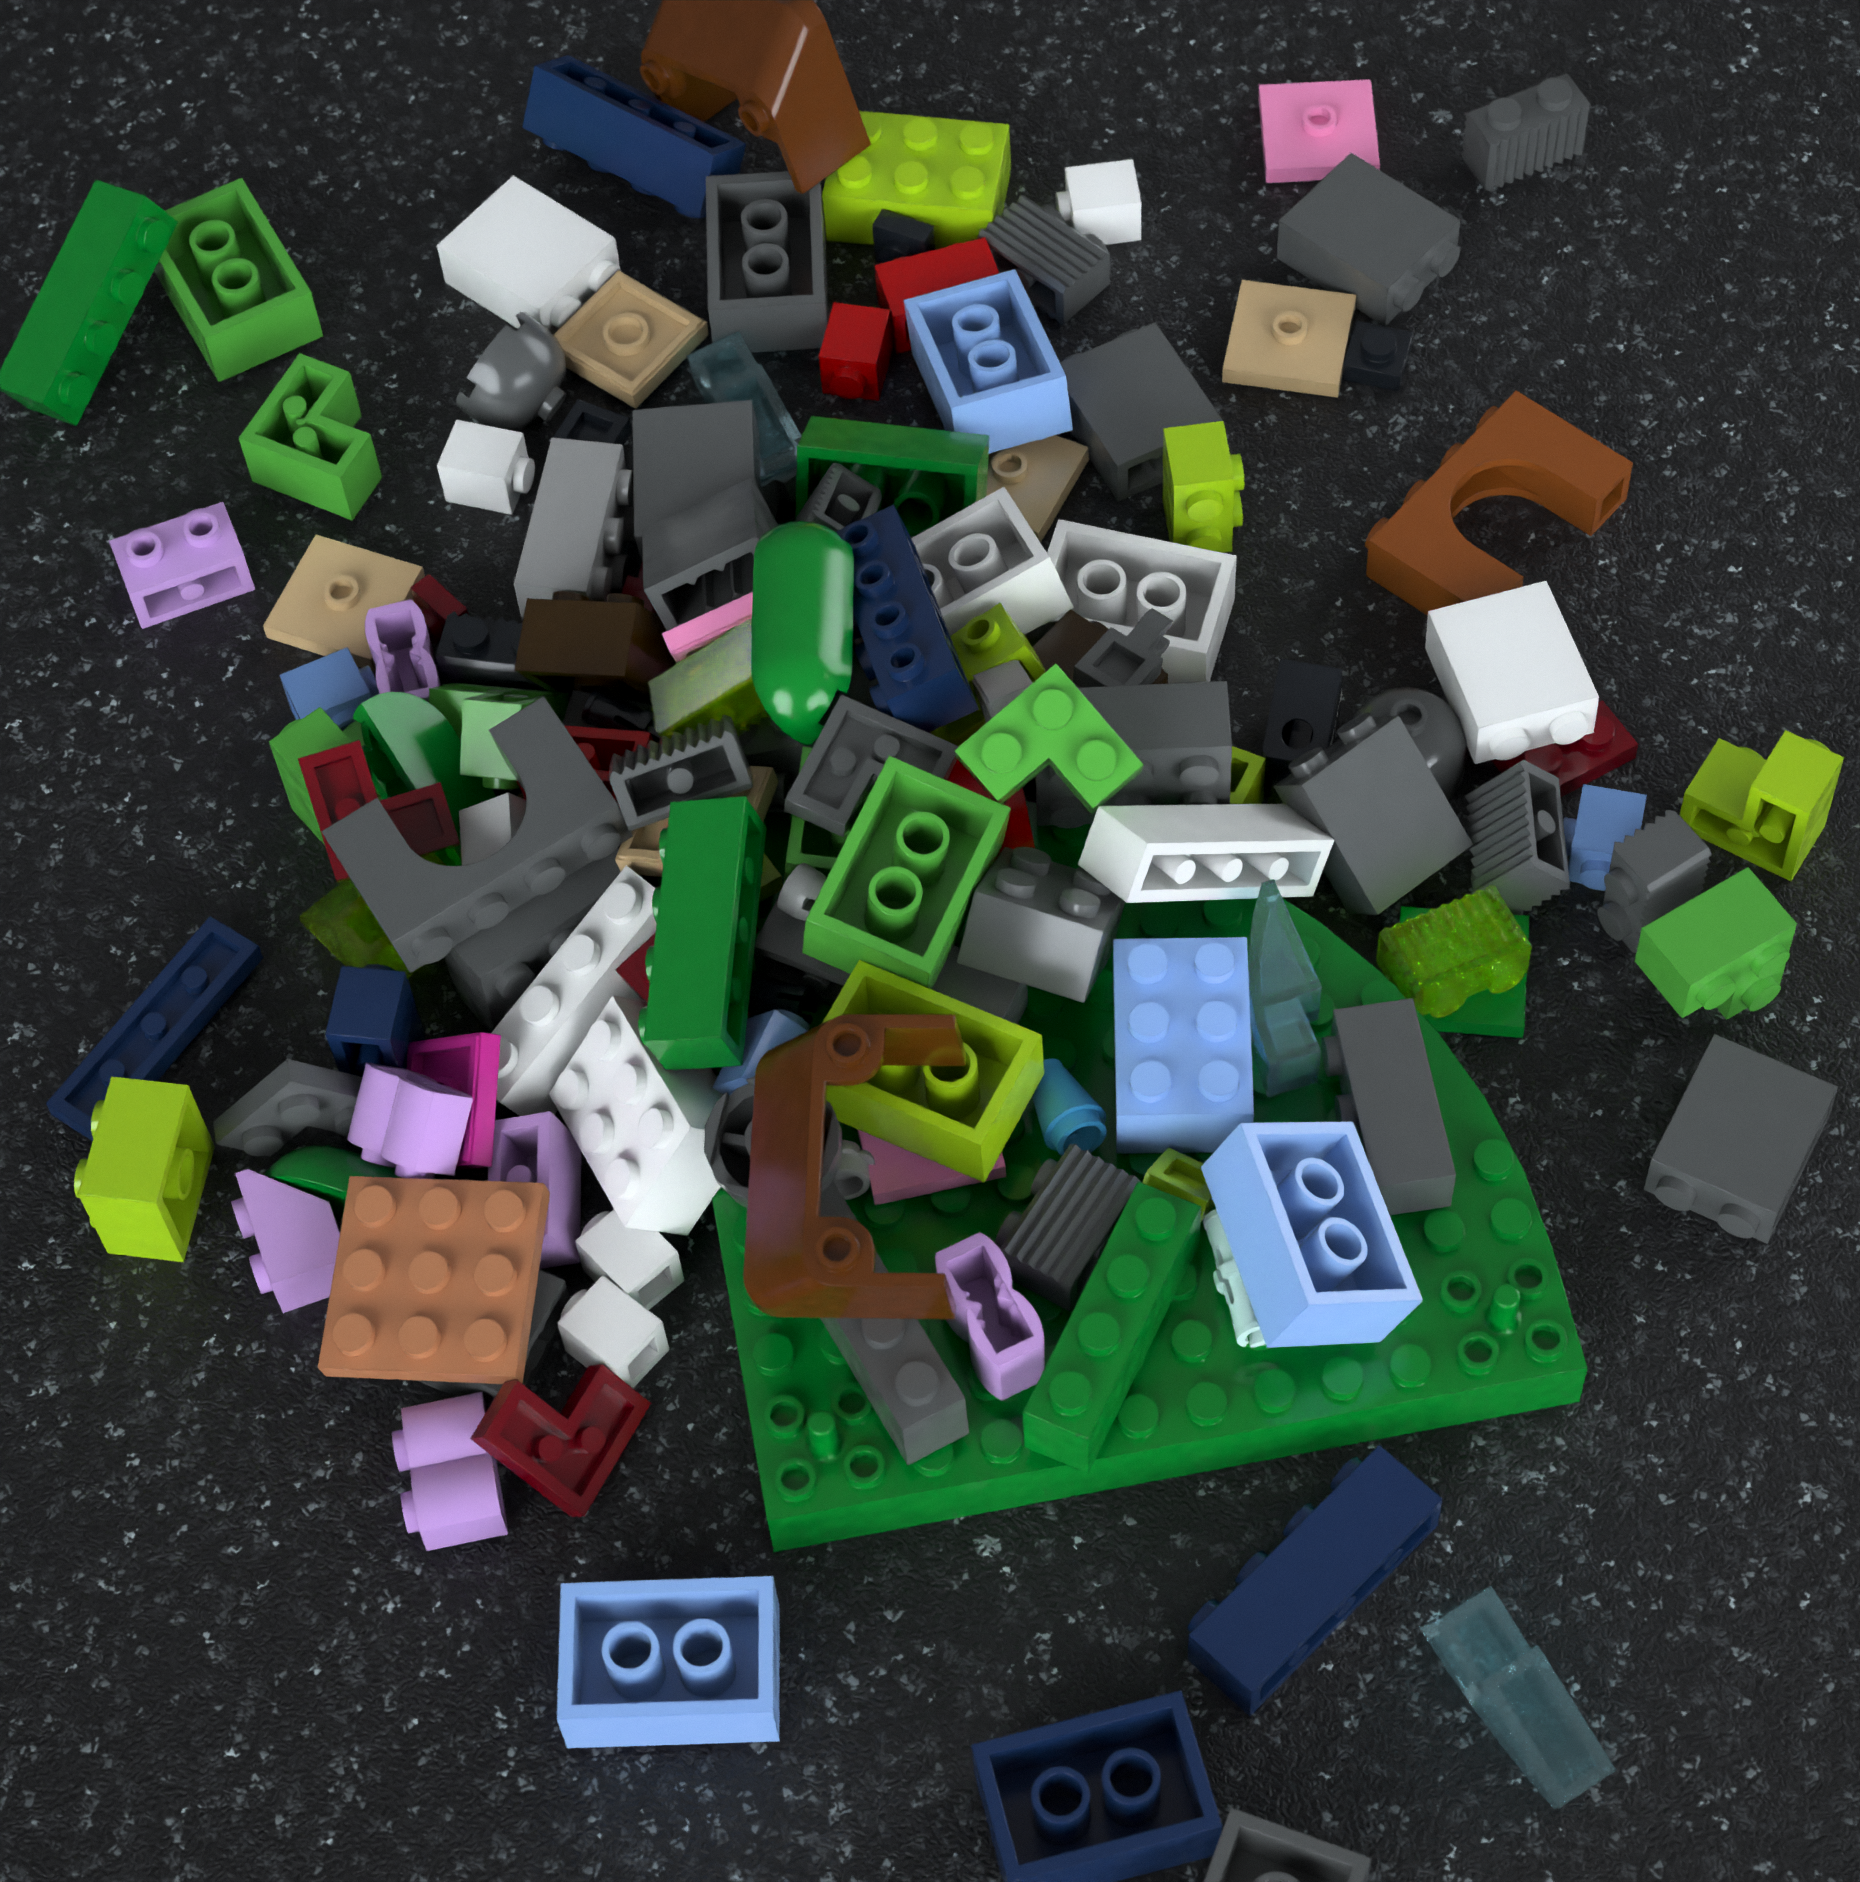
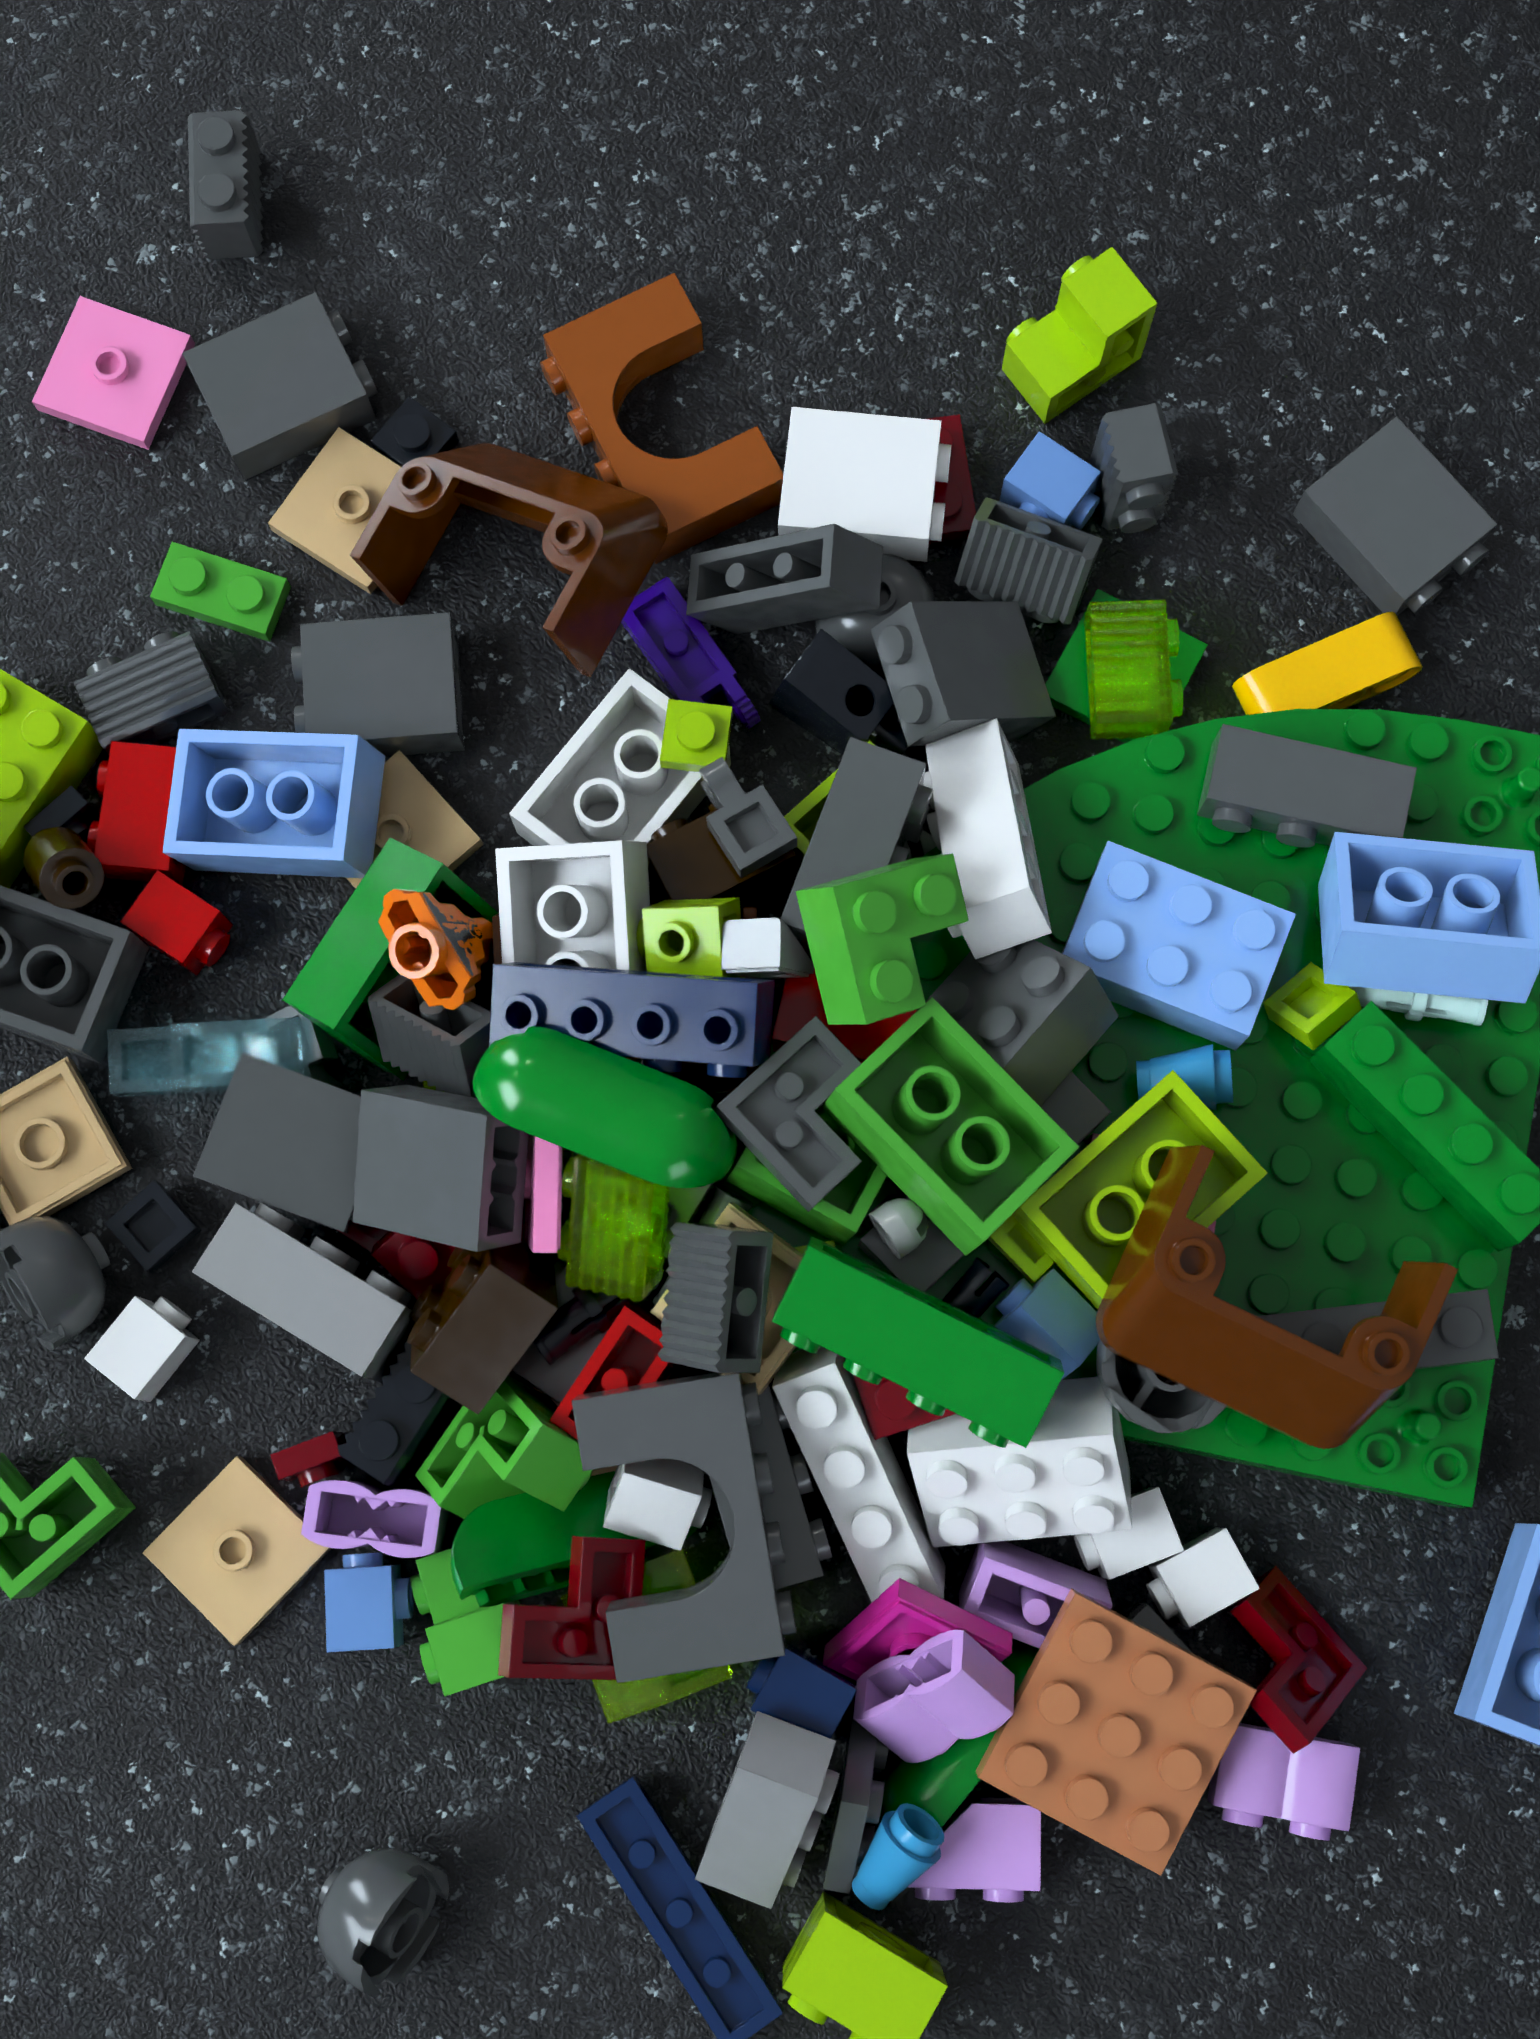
camera: 70 degrees left, 20 degrees up
(72, 805) = (377, 1917): none -> dark grey cylinder
(182, 565) = (116, 1708): lavender brick -> none
(259, 1022) = (769, 1811): none -> light grey brick
(260, 1145) = (898, 1855): none -> dark azure cone
(856, 240) = (63, 867): none -> dark brown brick
(899, 470) = (435, 946): none -> orange rock
(993, 1317) = (1378, 1230): lavender brick -> none
(1065, 1225) = (1313, 1125): dark grey brick -> none
(1102, 201) = (108, 612): white brick -> none
(1165, 275) = (220, 591): none -> bright green plate
(1198, 621) = (695, 734): none -> lime plate
(1201, 486) = (522, 669): lime brick -> none
(1281, 997) = (1146, 827): clear light blue slope -> none
(1283, 620) = (684, 650): none -> dark purple hinge
(1325, 475) = (589, 528): none -> reddish brown windscreen
(1381, 639) = (785, 579): none -> dark grey brick
(1557, 1141) = (1333, 670): none -> yellow beam
(1719, 948) = (1232, 445): bright green brick -> none

